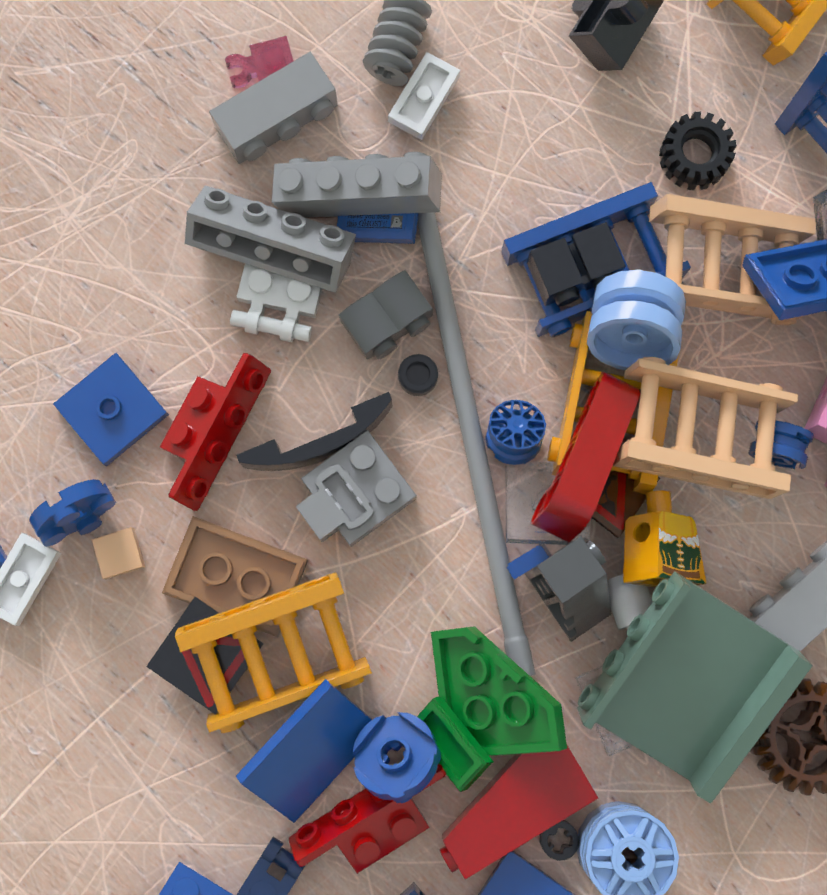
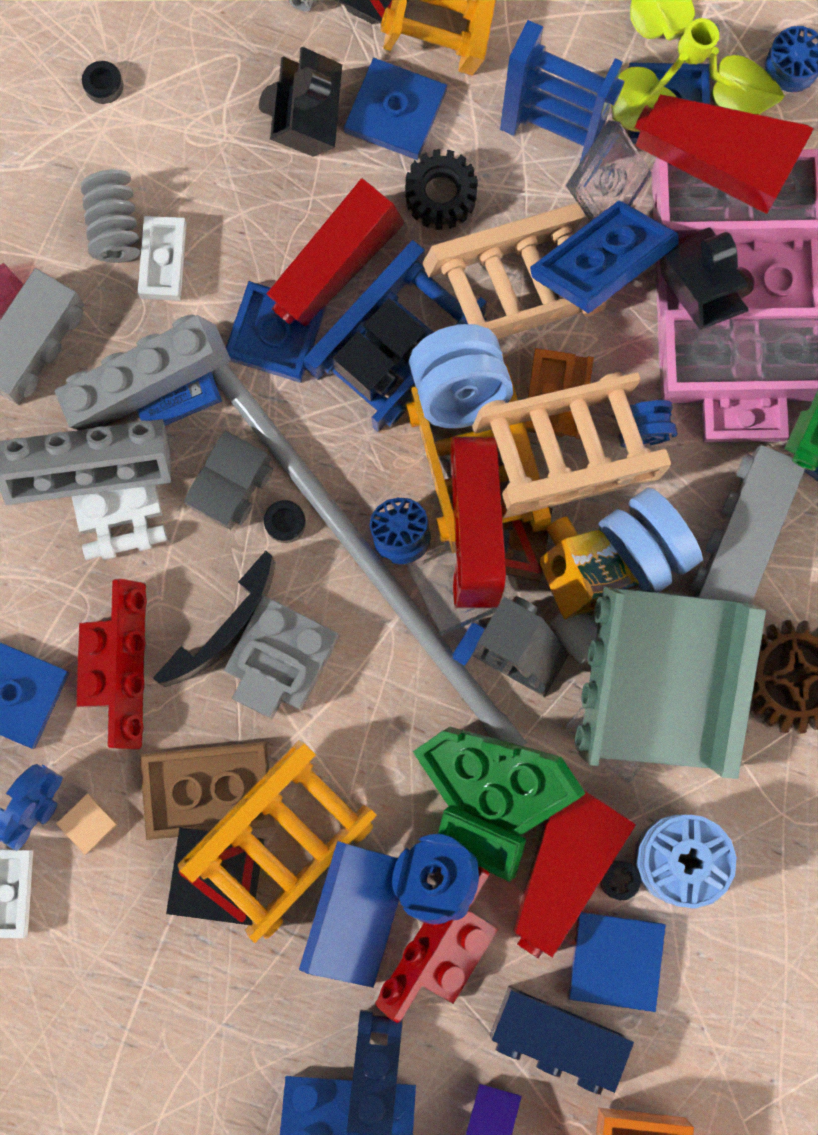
camera: 25 degrees left, 0 degrees up
(490, 205) = (266, 340): none -> blue tile
(578, 161) = (335, 253): none -> red slope
(691, 62) = (395, 108): none -> blue plate
(723, 359) = (557, 372): none -> orange plate
(737, 550) = (652, 540): none -> light blue wheel

